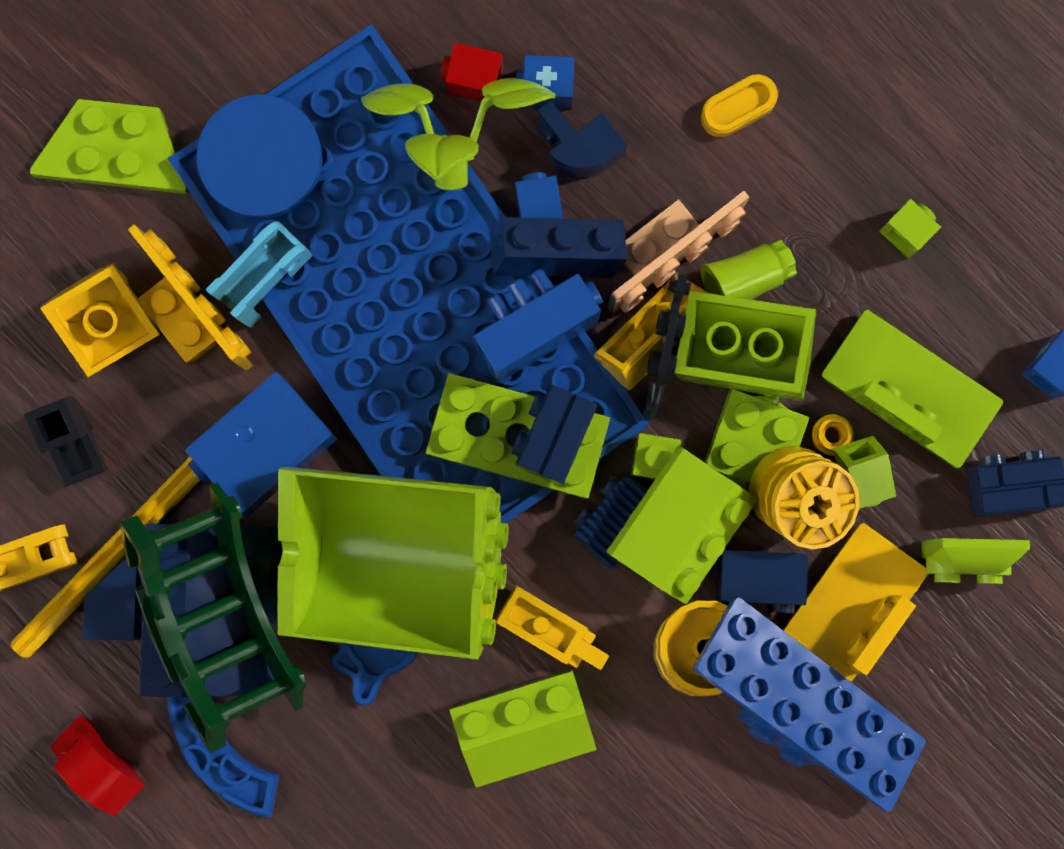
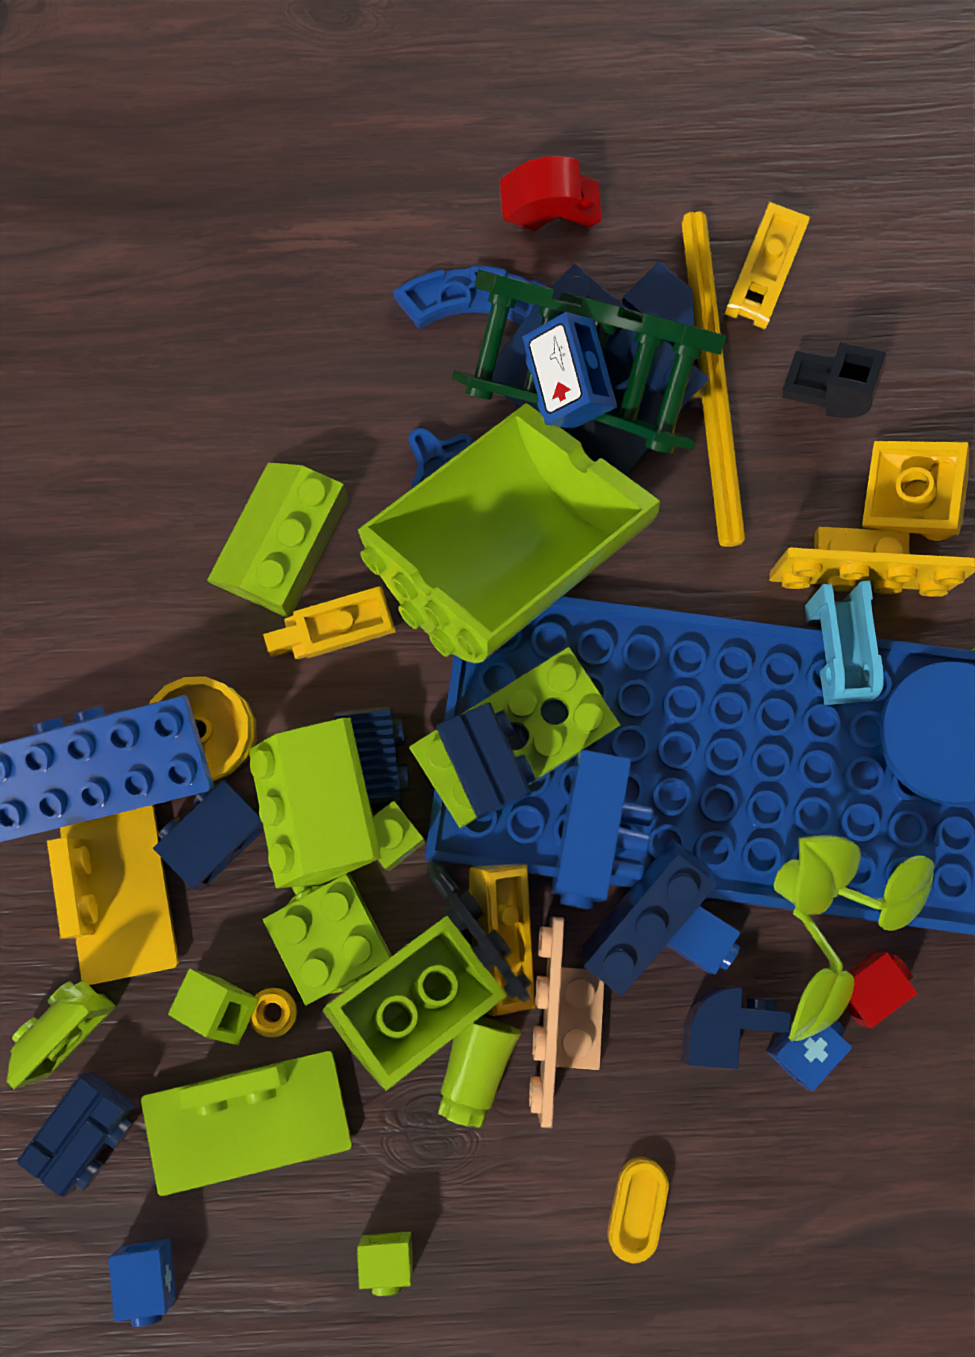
camera: 130 degrees right, 5 degrees down
(234, 617) = (569, 371): none -> brick
(258, 438) = (699, 522): blue piece -> none
(804, 497) = (239, 930): yellow wheel -> none

